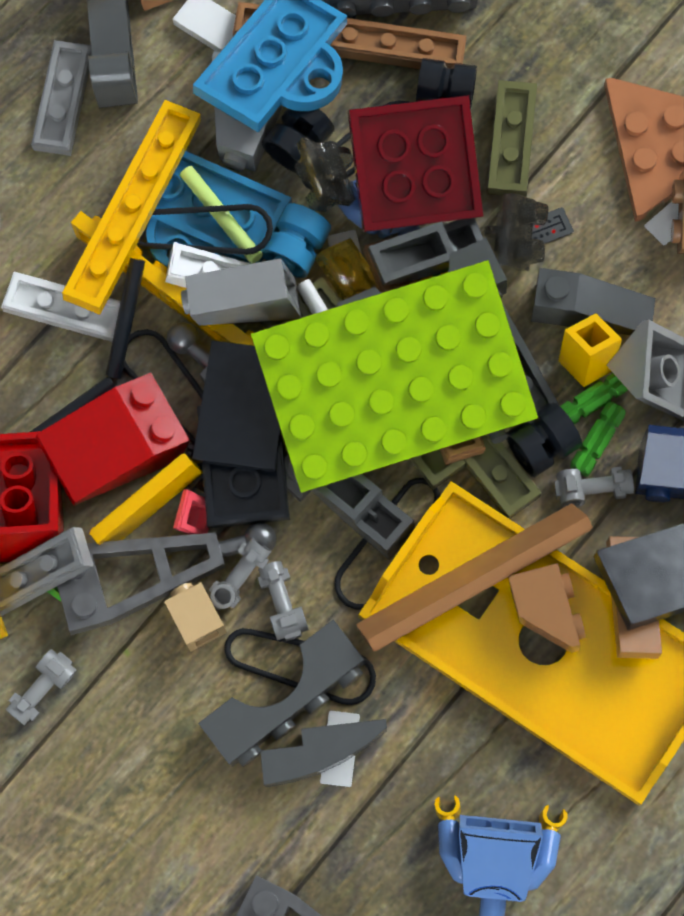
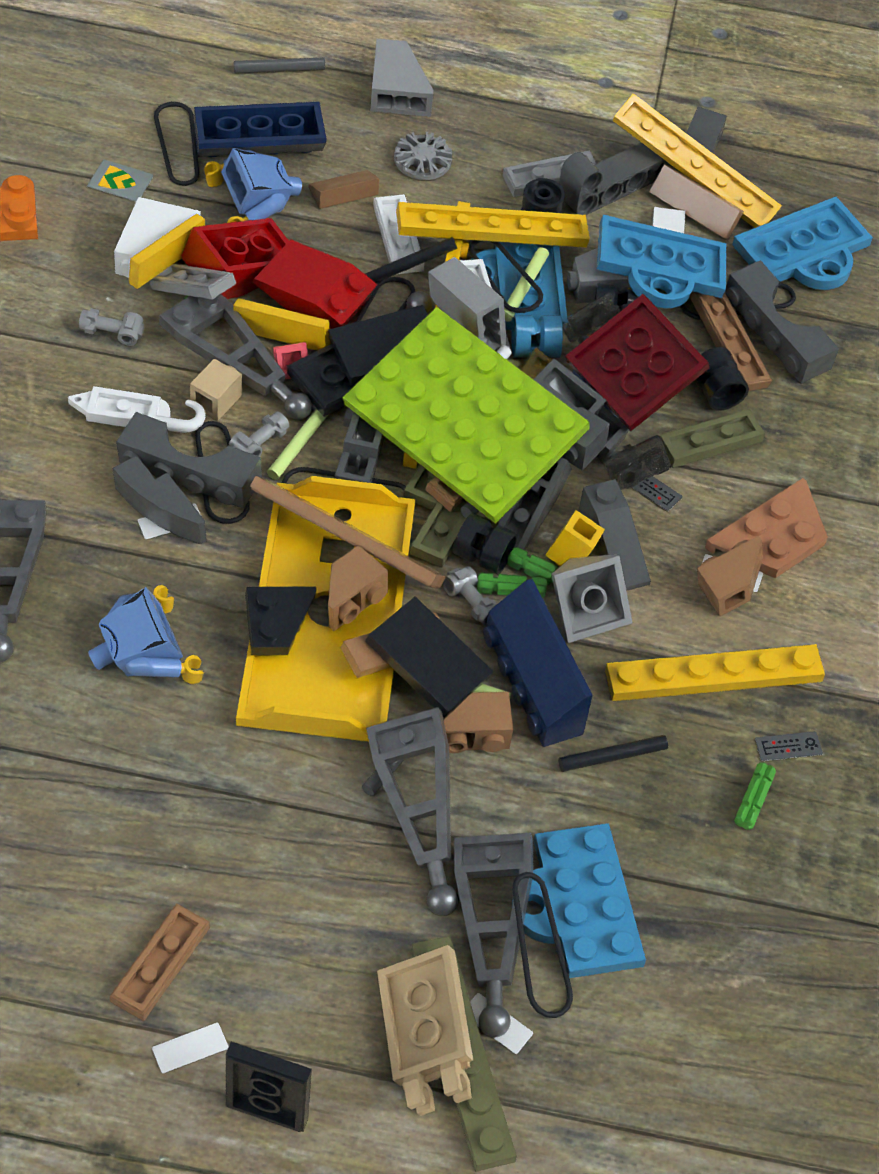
camera: 50 degrees right, 20 degrees down
(118, 135) = (543, 196): none -> black wheel
(178, 718) = (119, 406): none -> white plate
(227, 592) = (247, 403): light grey bar -> none
(306, 566) = (295, 445): none -> yellowish green bar
(542, 703) = (276, 617): none -> black wing

